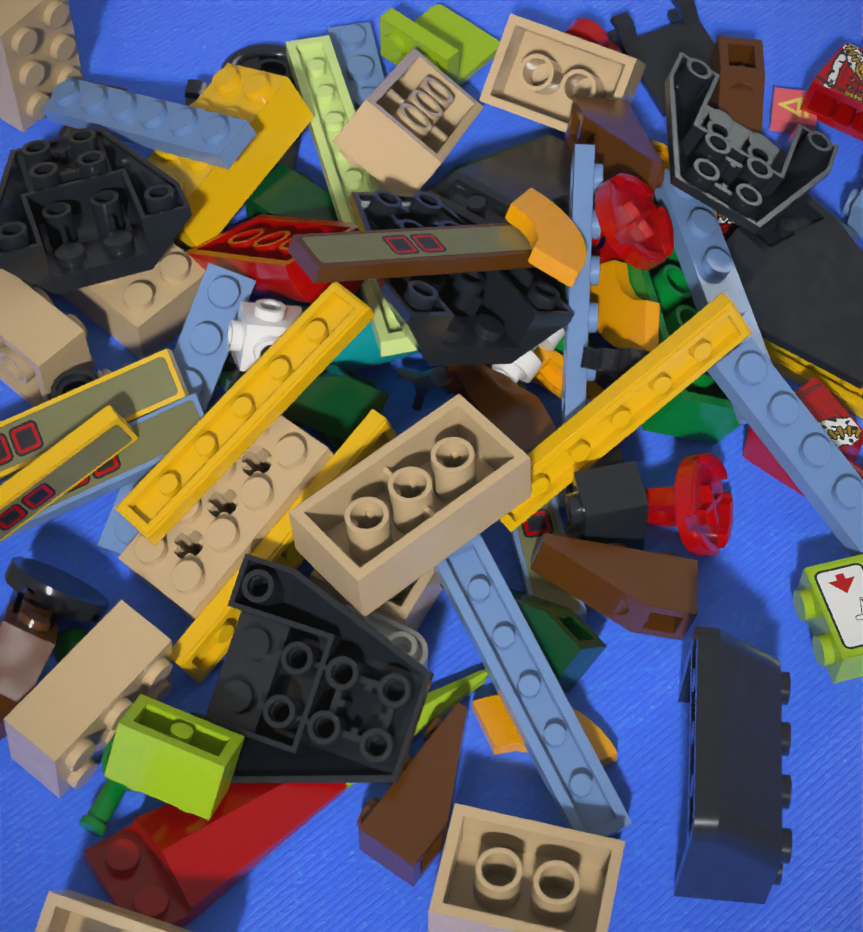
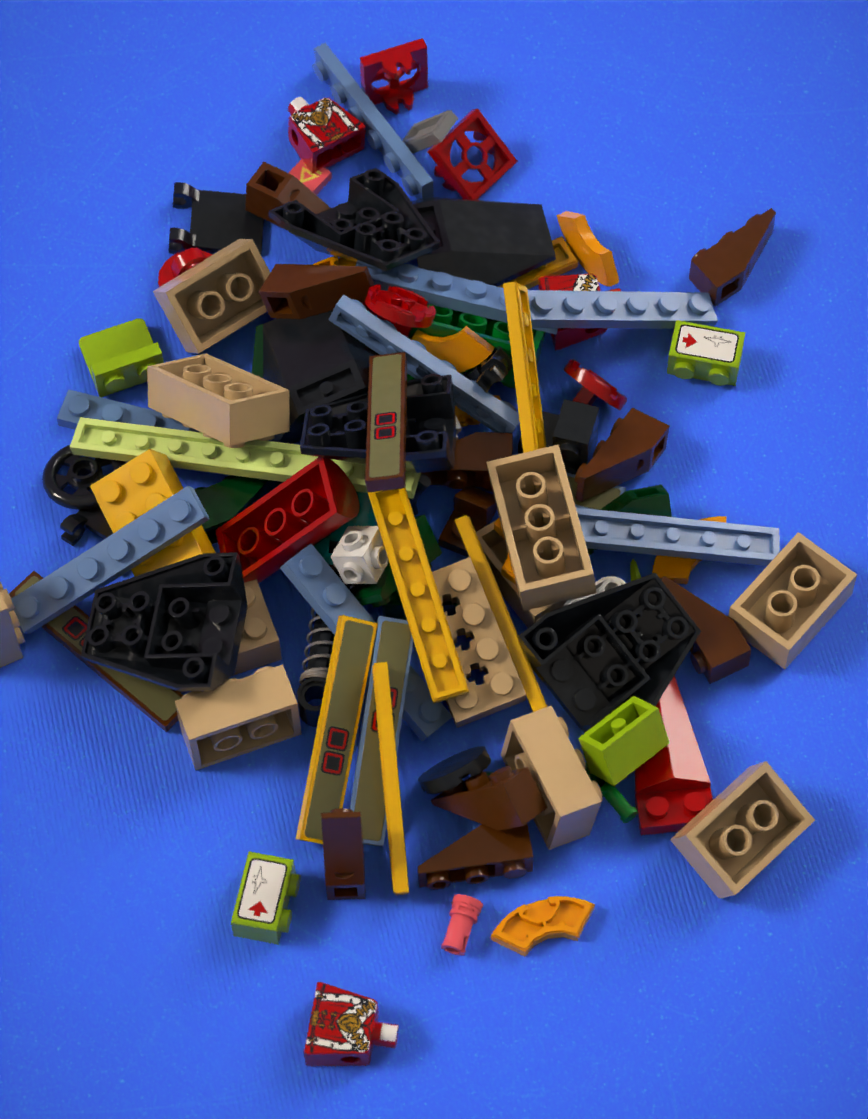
camera: 60 degrees left, 5 degrees up
(552, 236) = (397, 354): light orange tile -> none
(734, 770) = (782, 447): black windscreen -> none

